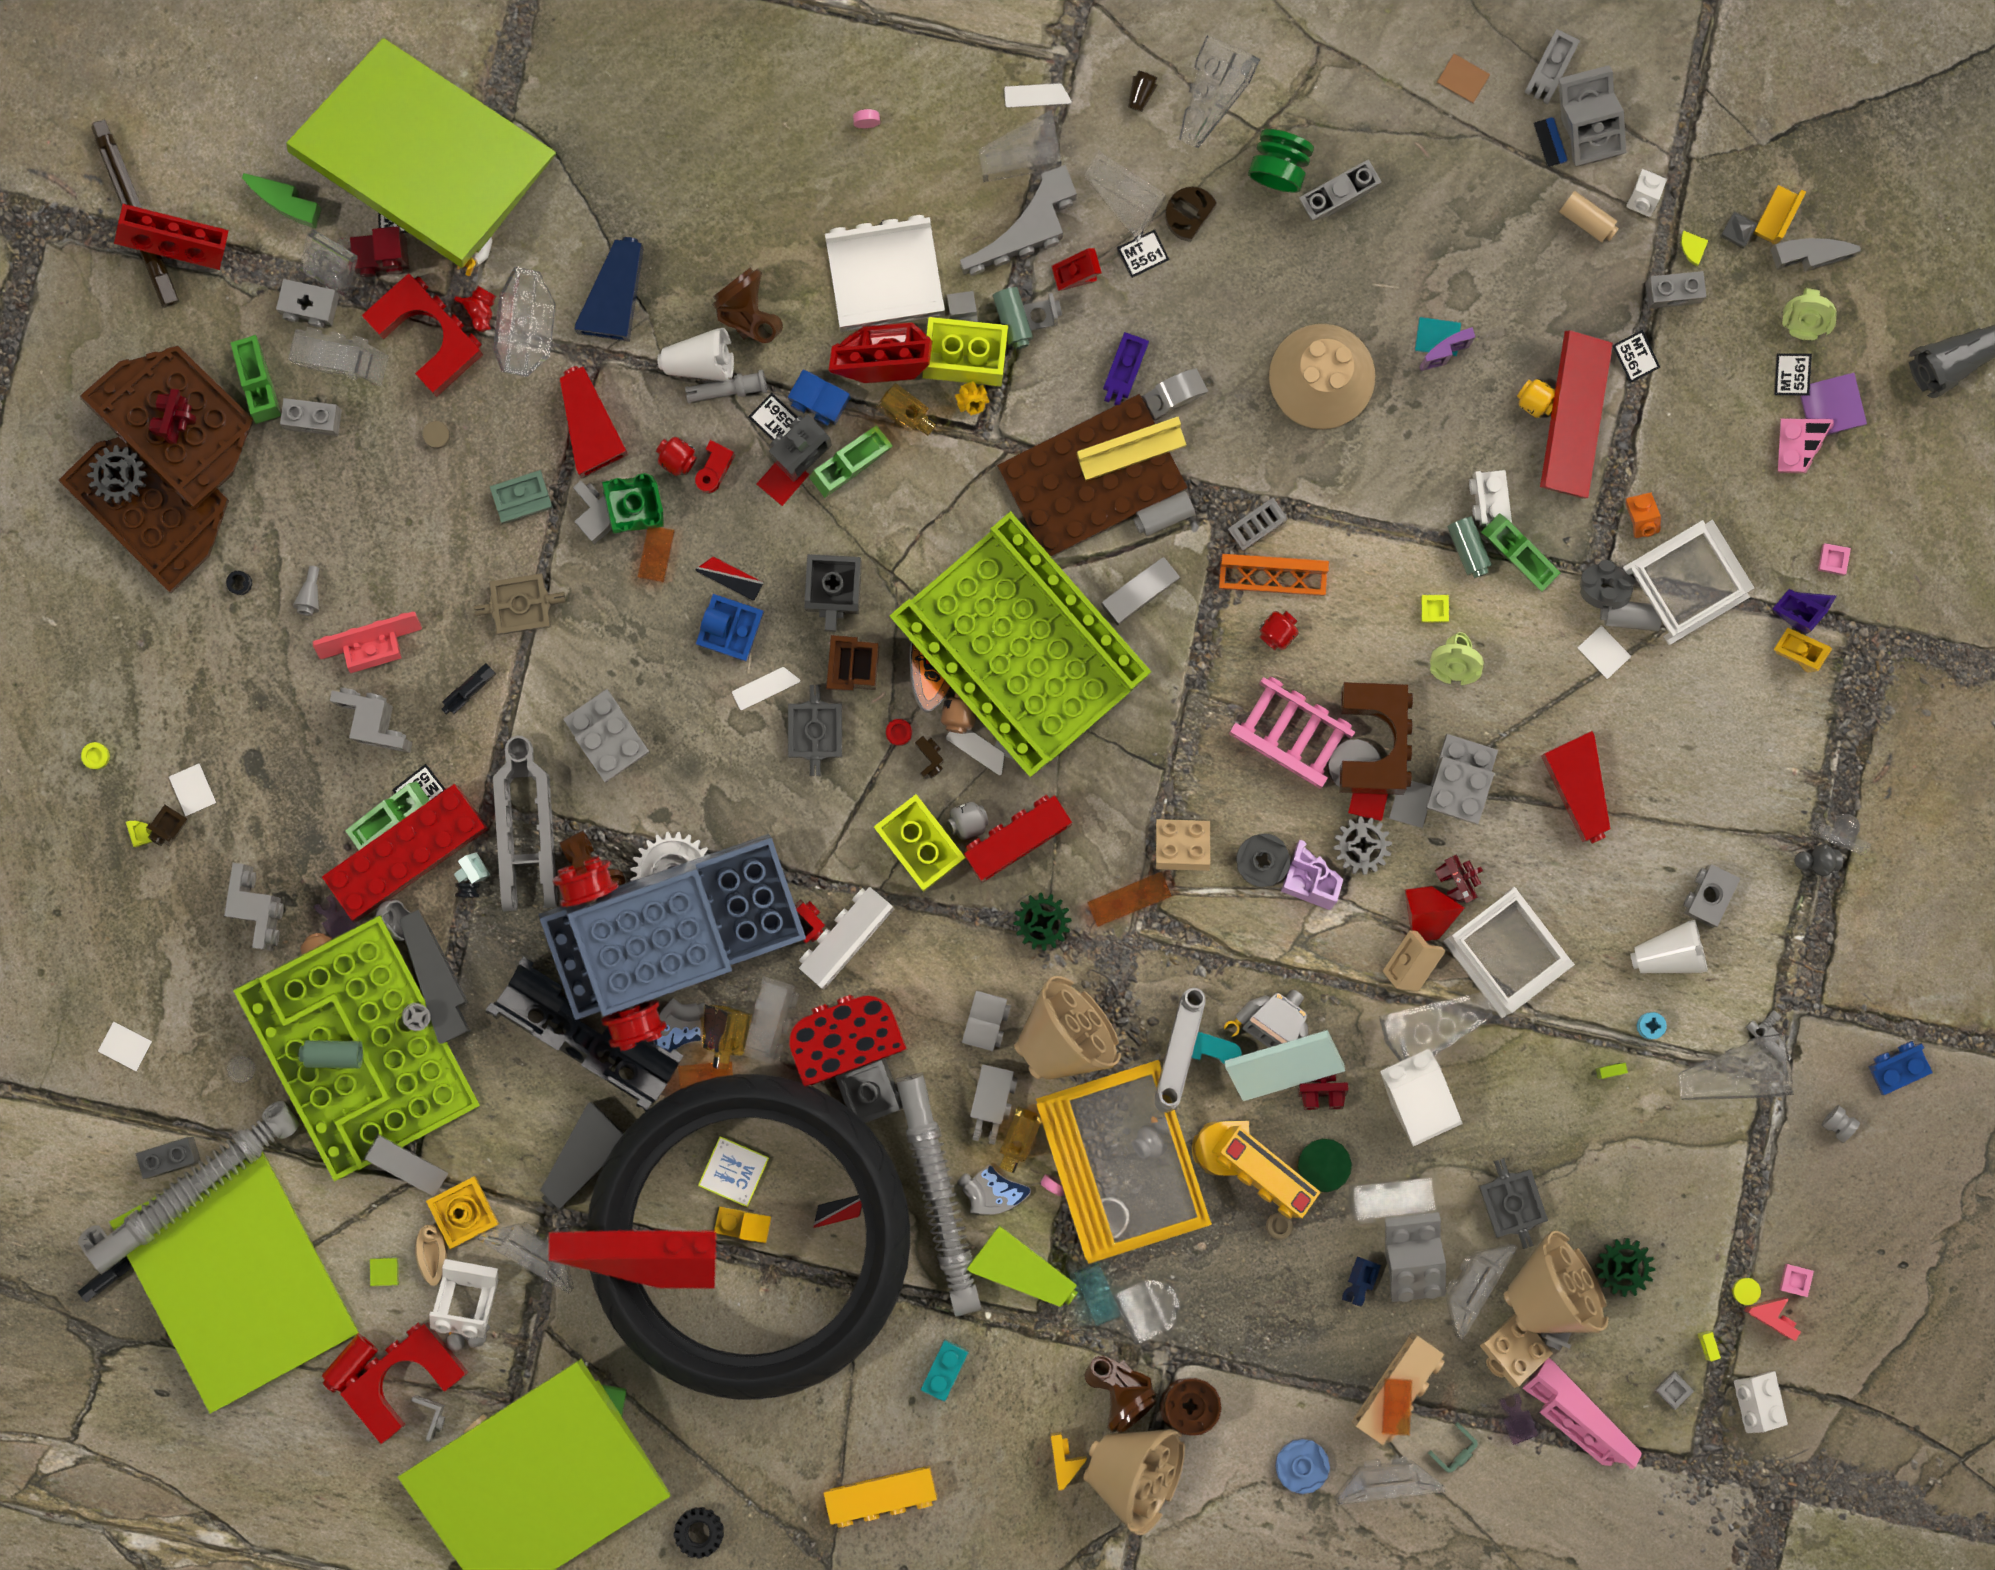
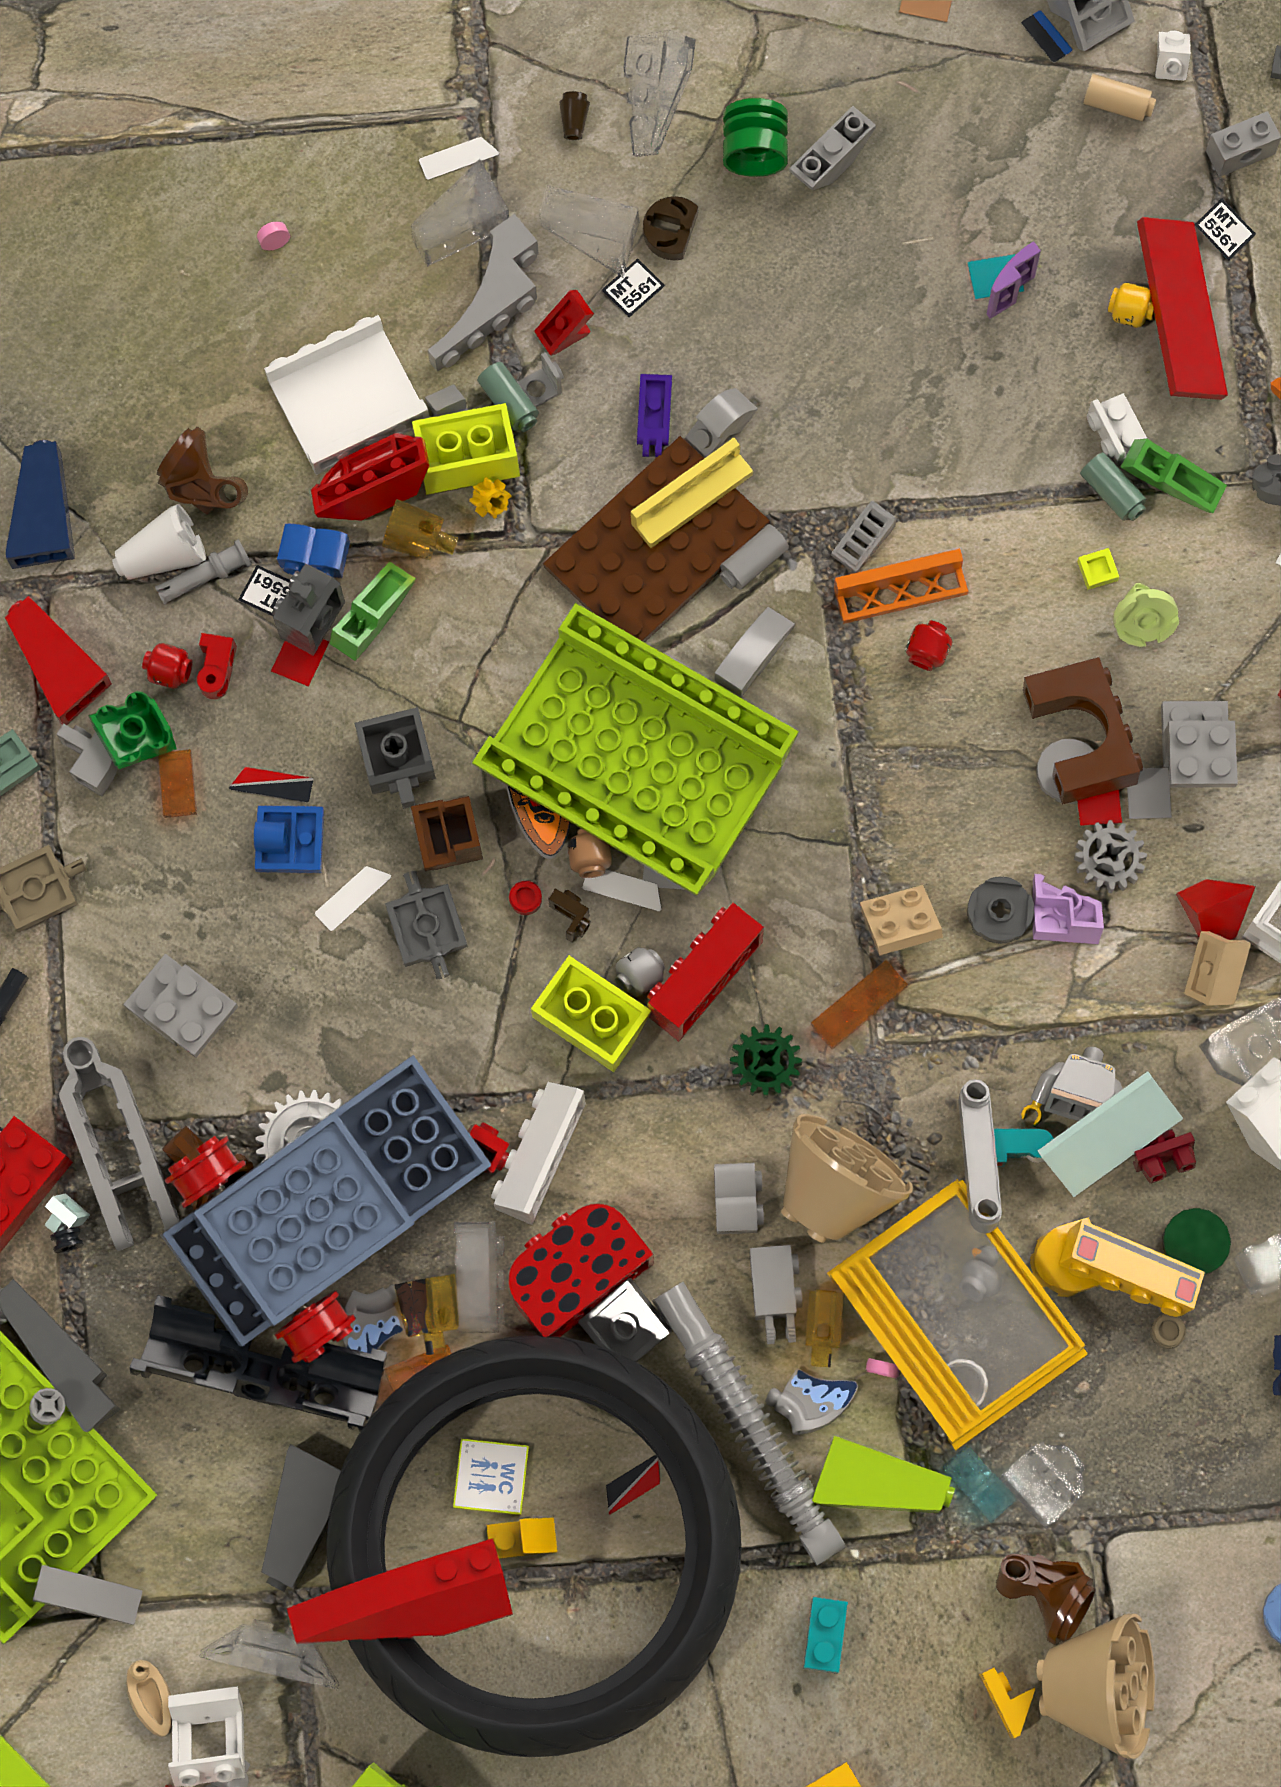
camera: 15 degrees left, 10 degrees down
(384, 1271) = (98, 1738): lime tile -> none
(462, 1212) = (173, 1632): yellow plate -> none
(1206, 1409) = (1146, 1564): reddish brown wheel -> none
(1291, 758) = (993, 785): bright pink fence -> none
(1322, 376) = (880, 357): tan cone -> none
(1454, 868) = (1223, 850): dark red hips -> none
(1693, 247) = (1245, 96): neon yellow tile -> none

